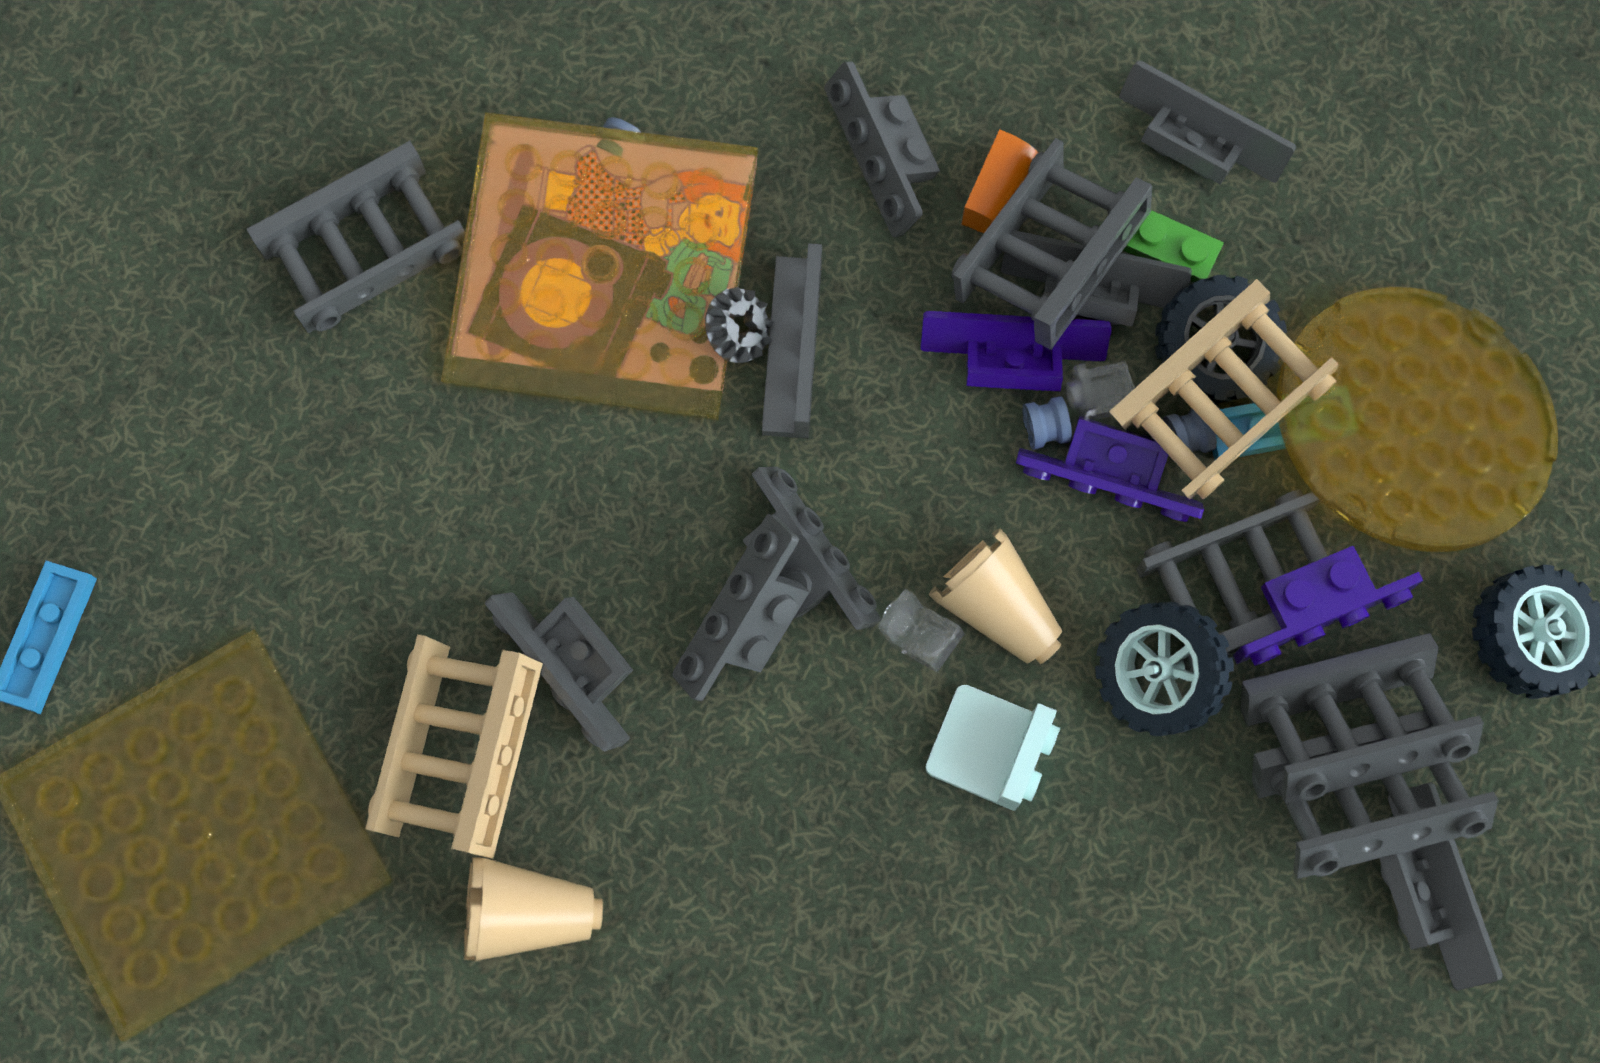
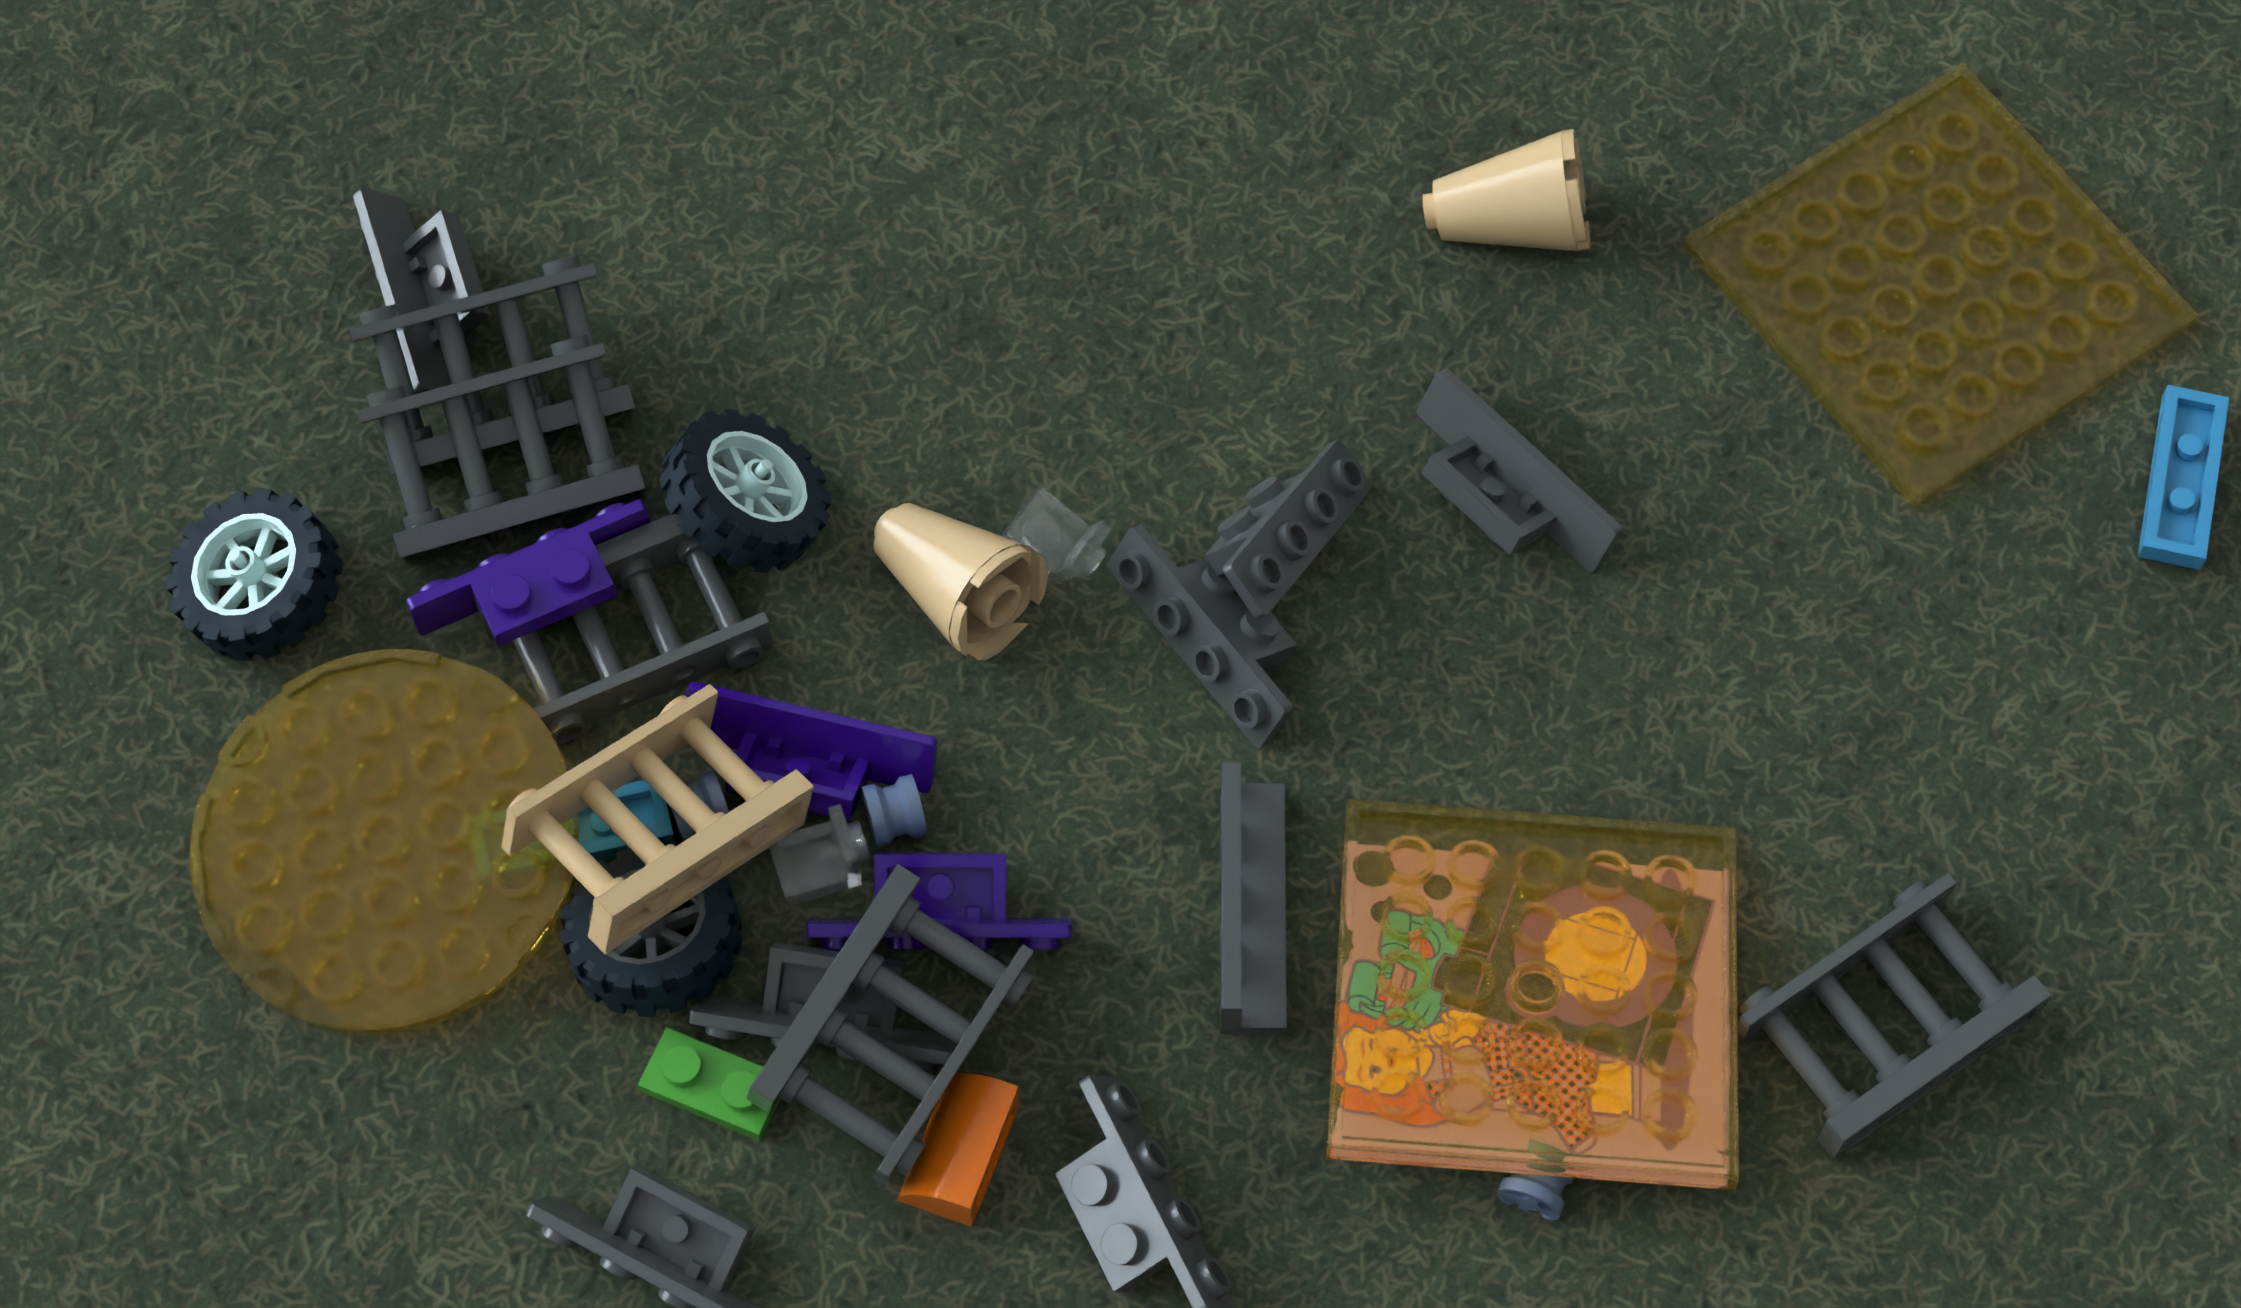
camera: 175 degrees right, 10 degrees down
(496, 758) = (1576, 370): tan fence -> none
(723, 331) = (1339, 921): dark grey gear -> none
(992, 747) = (957, 412): light aqua bracket -> none

